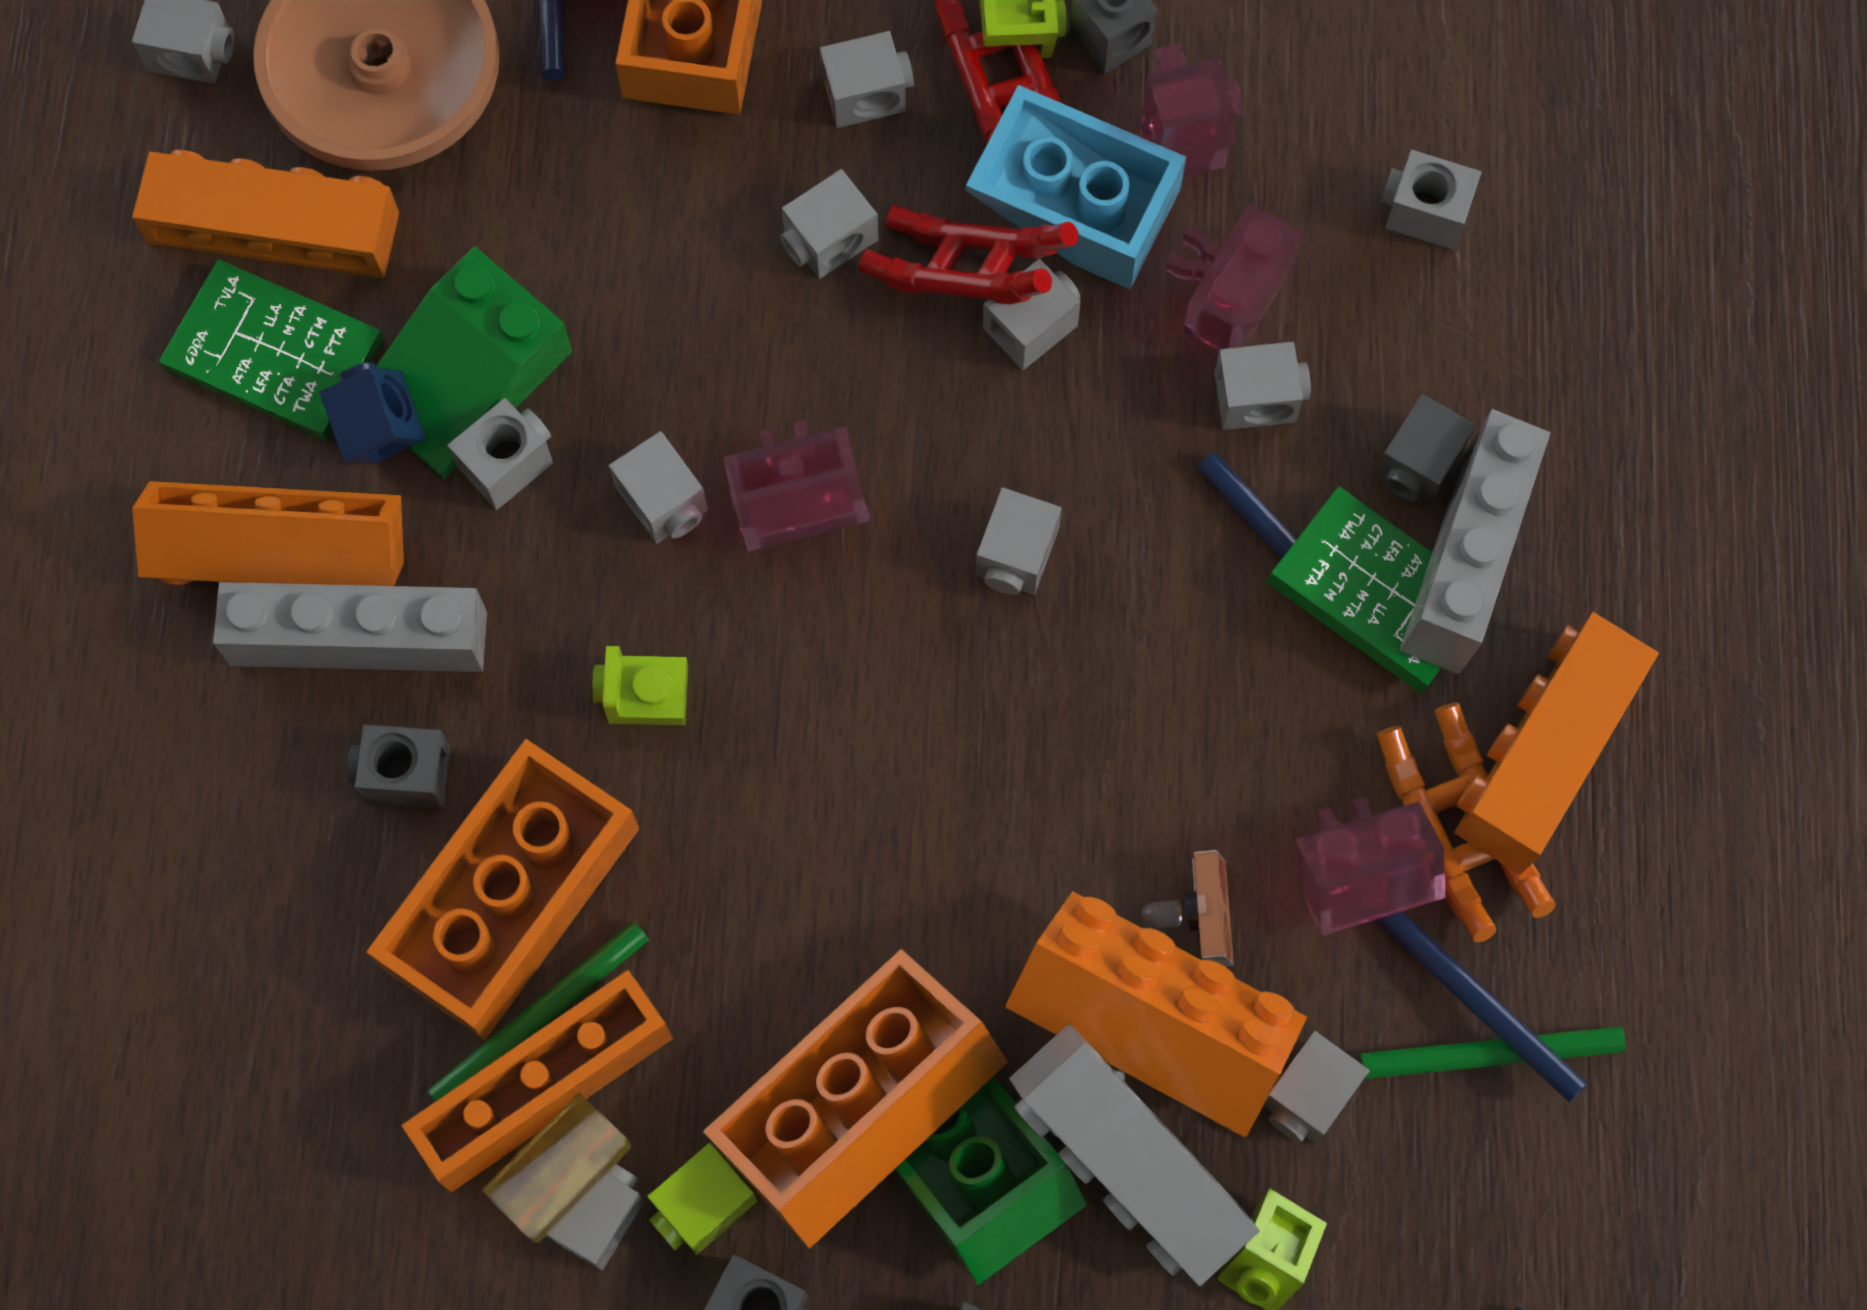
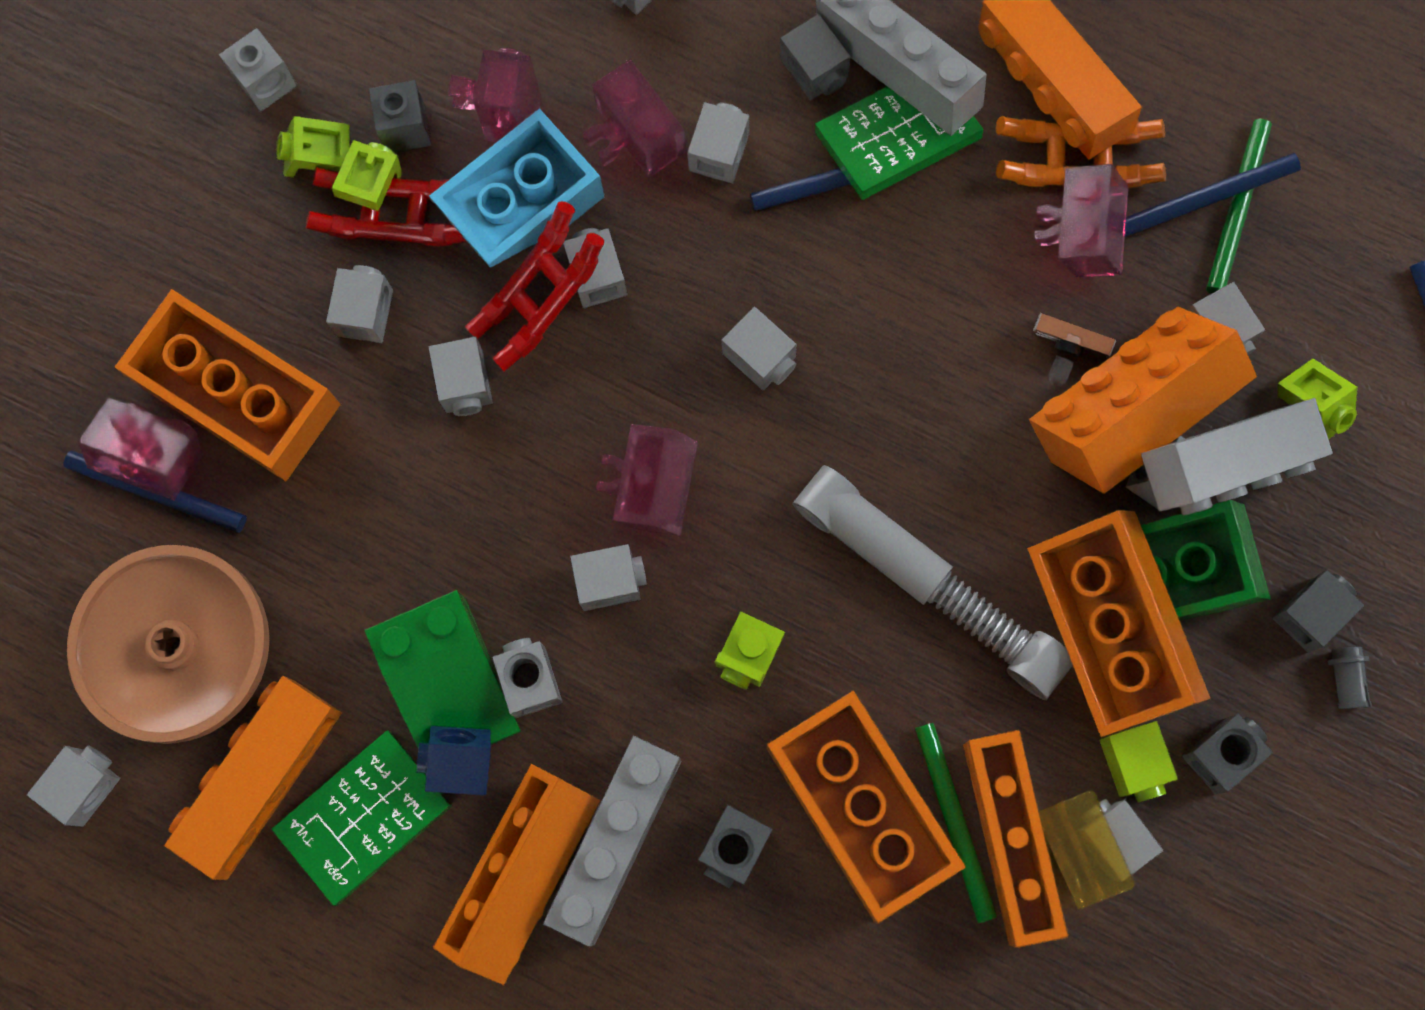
camera: 60 degrees left, 5 degrees up
(820, 856) = (837, 508): none -> light grey piece

